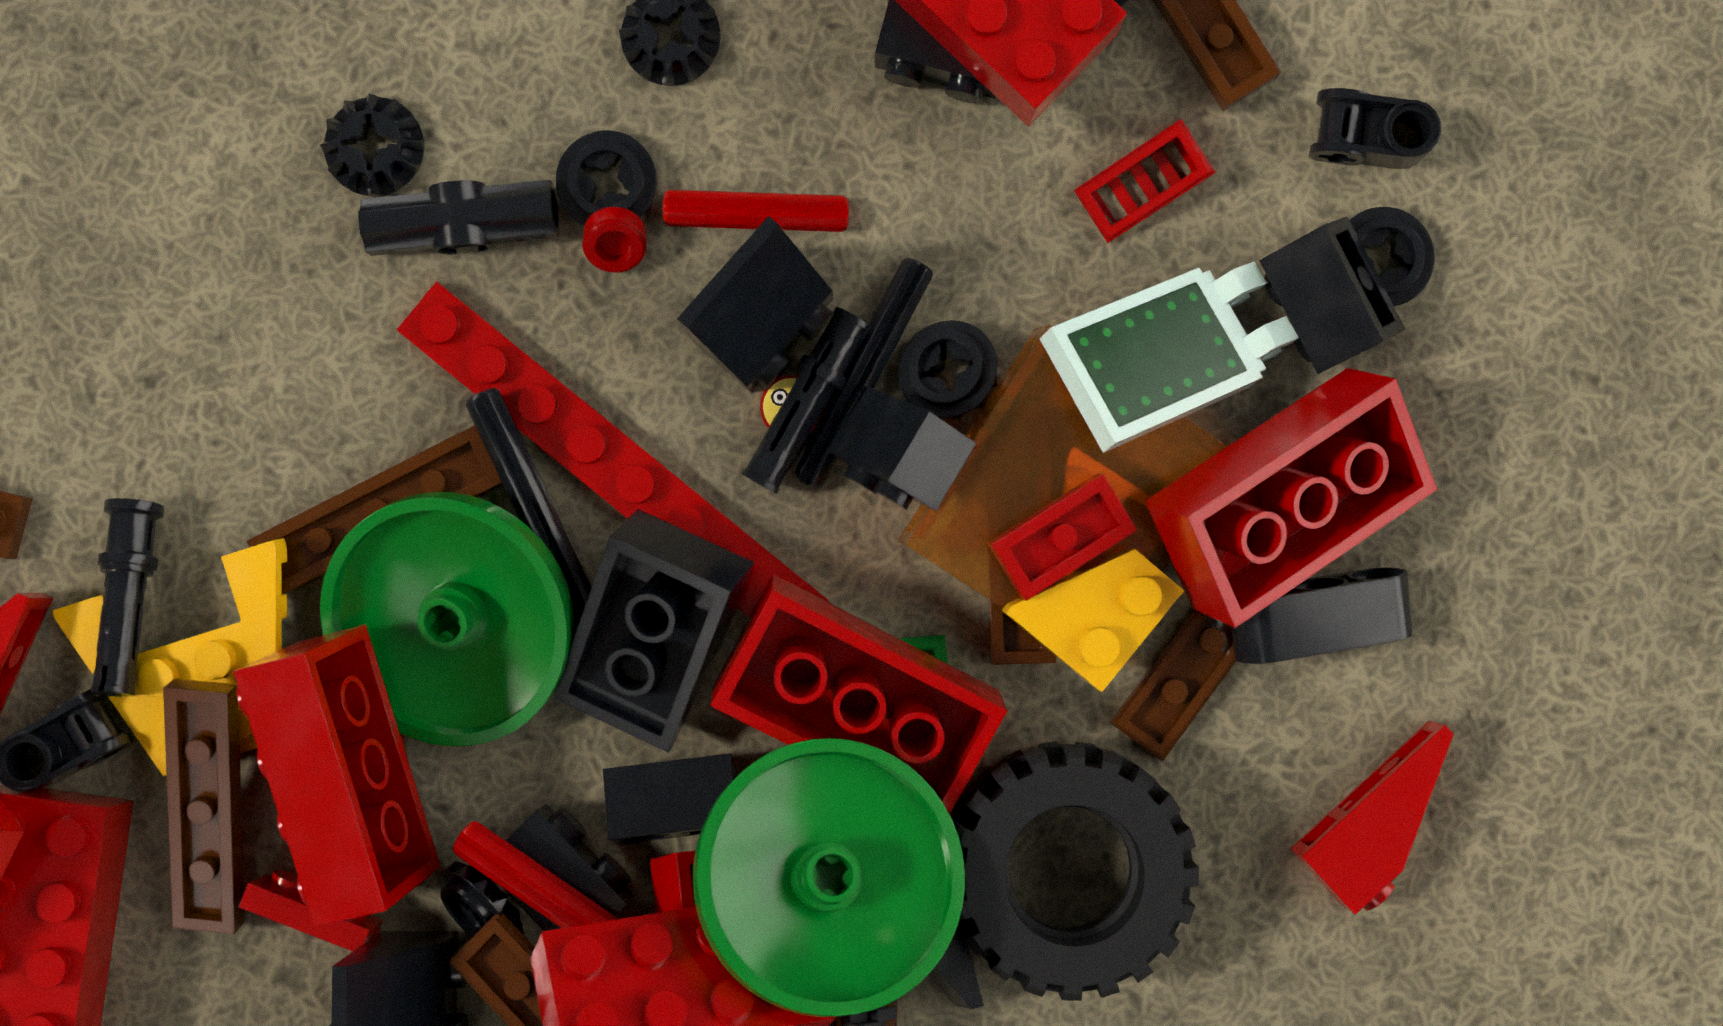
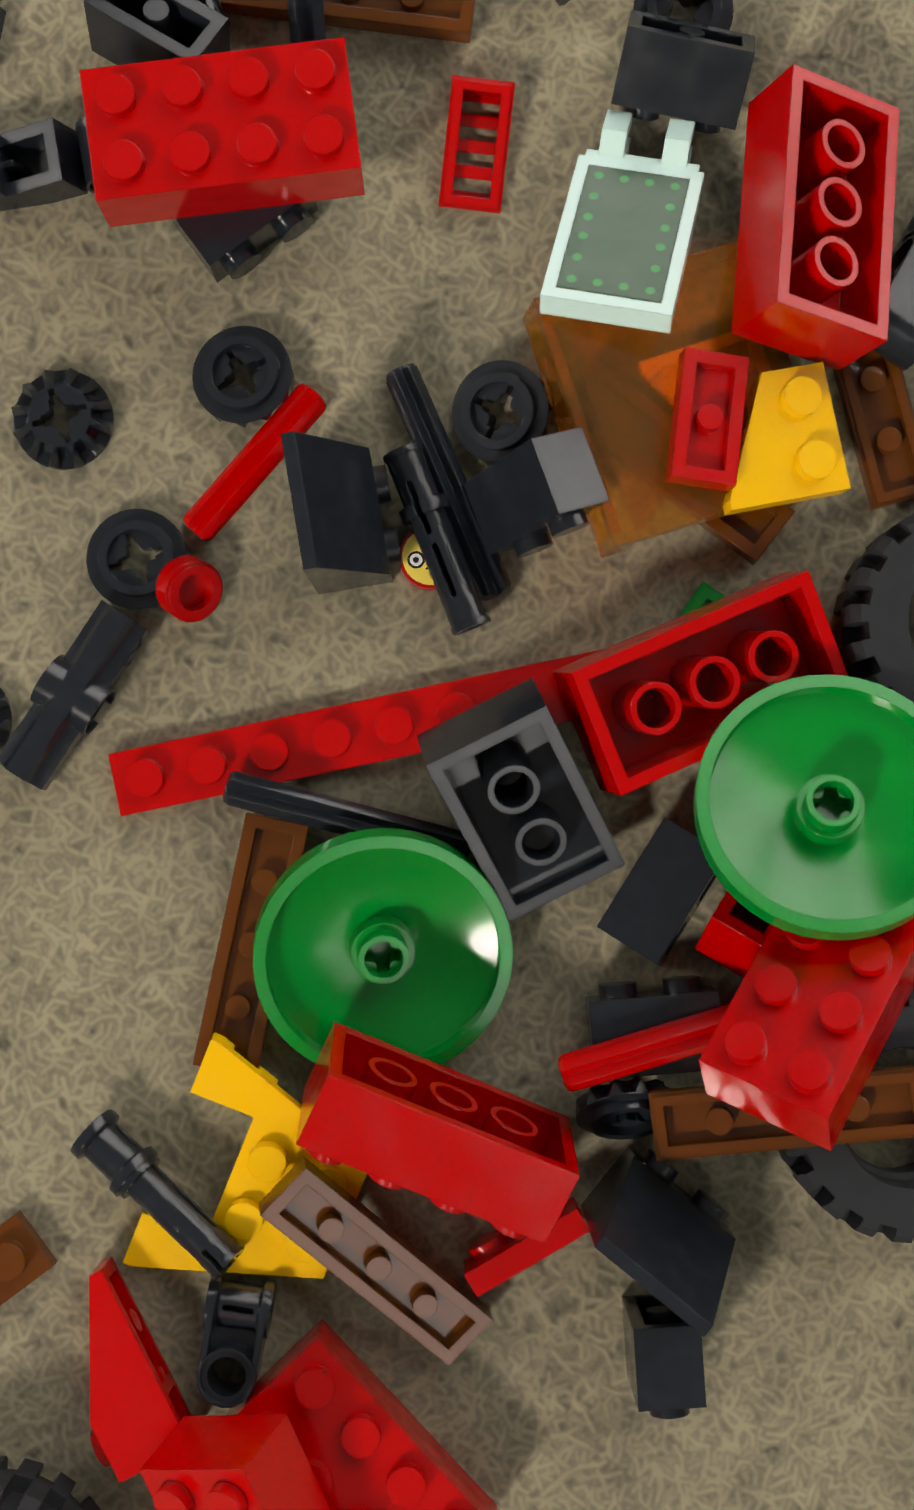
camera: 55 degrees left, 0 degrees up
(802, 122) = (215, 373): none -> black gear

